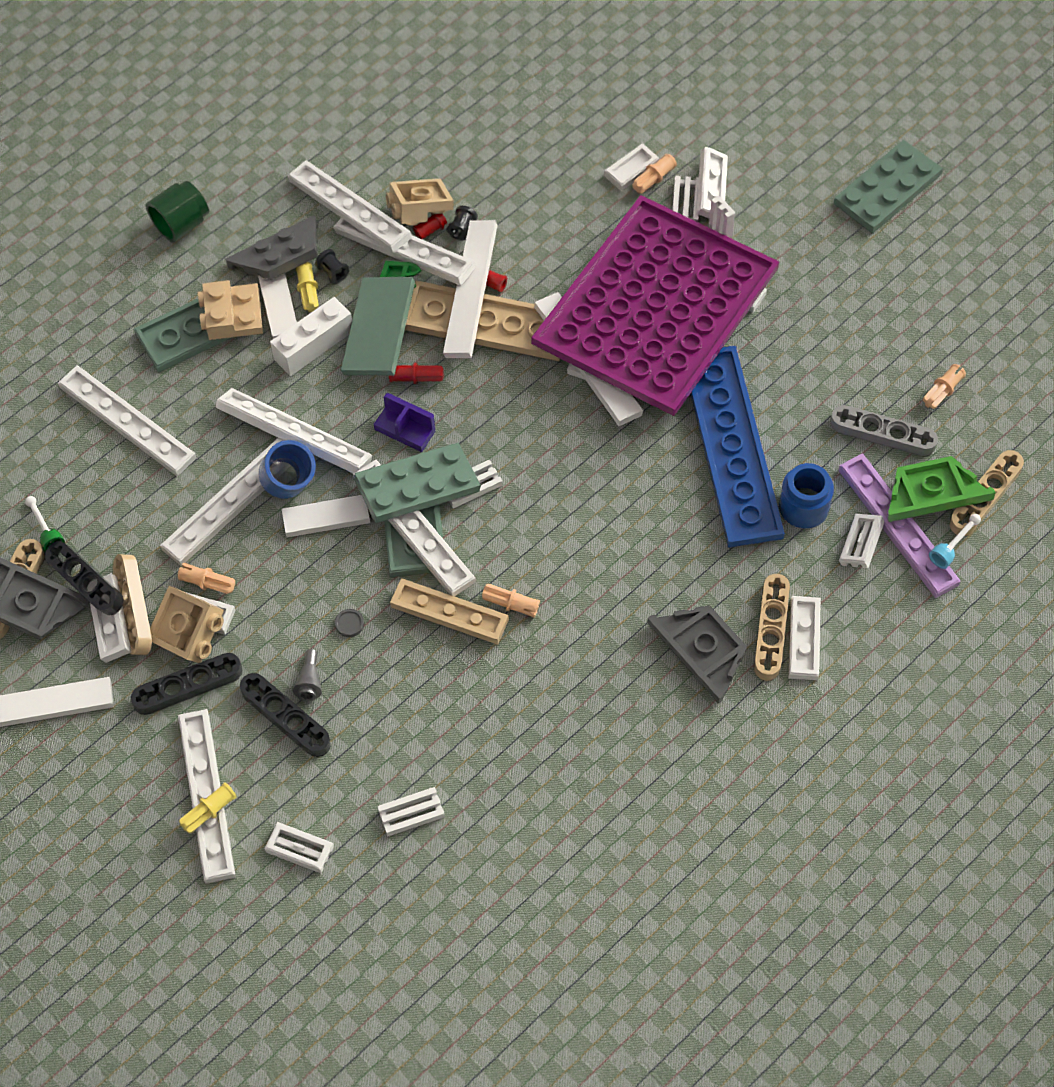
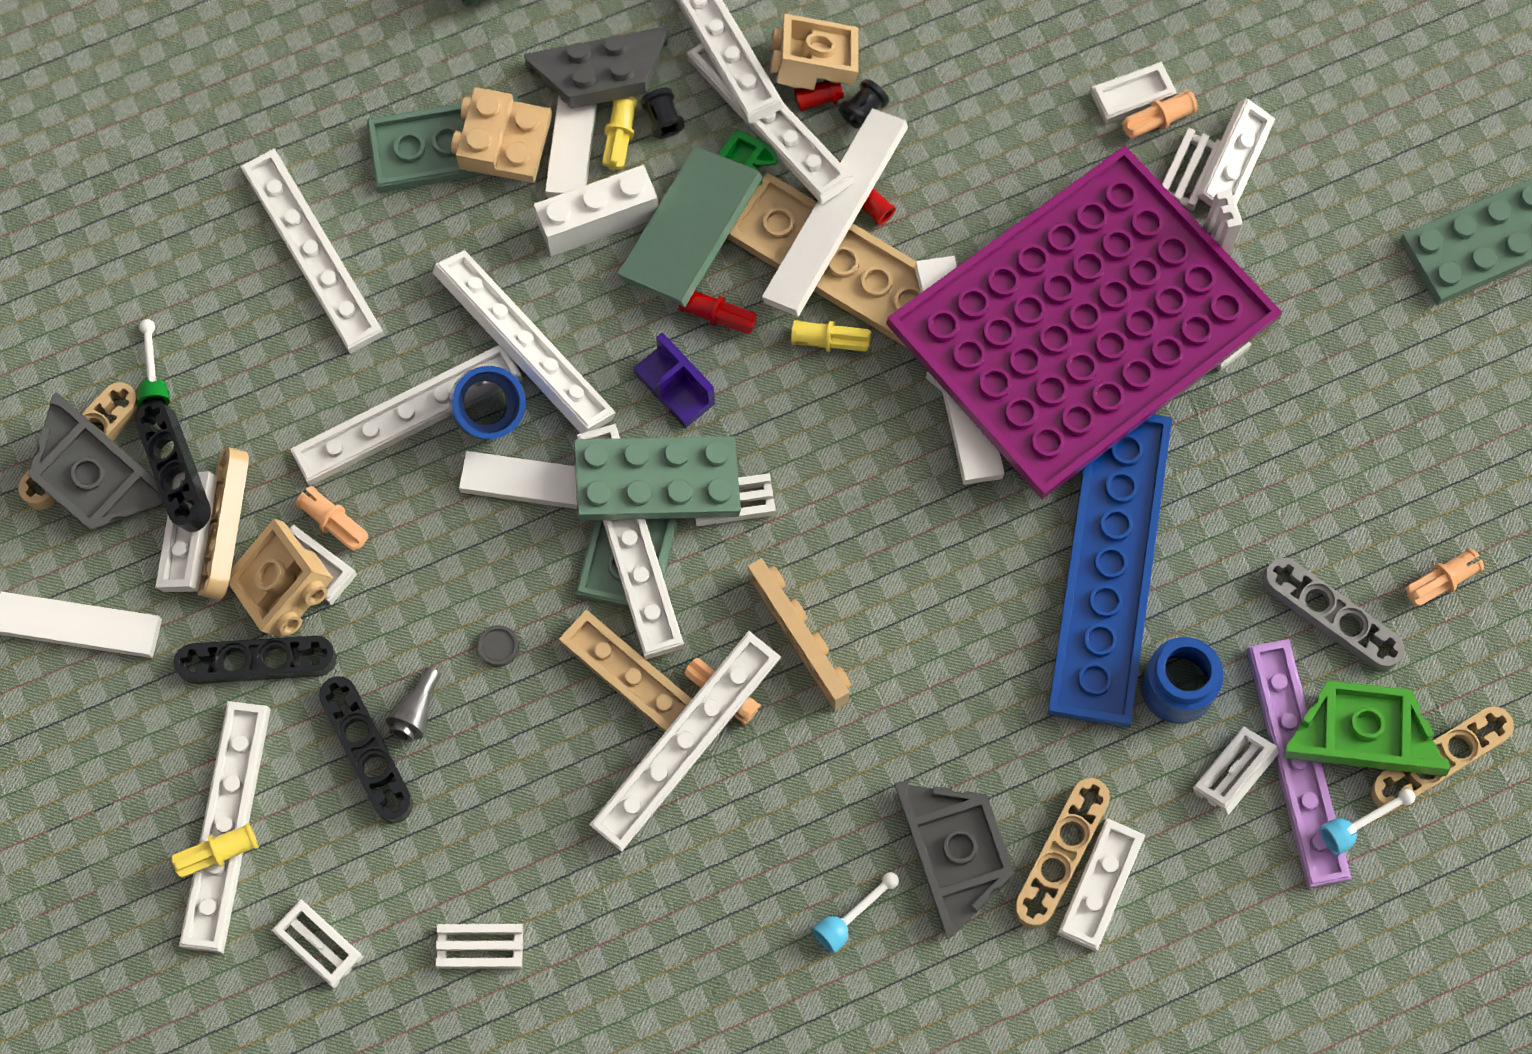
camera: 20 degrees right, 10 degrees up
(495, 366) = (830, 336): none -> light yellow axle
(499, 636) = (685, 741): none -> white tile
(542, 545) = (791, 620): none -> tan plate
(643, 722) = (833, 931): none -> hinge

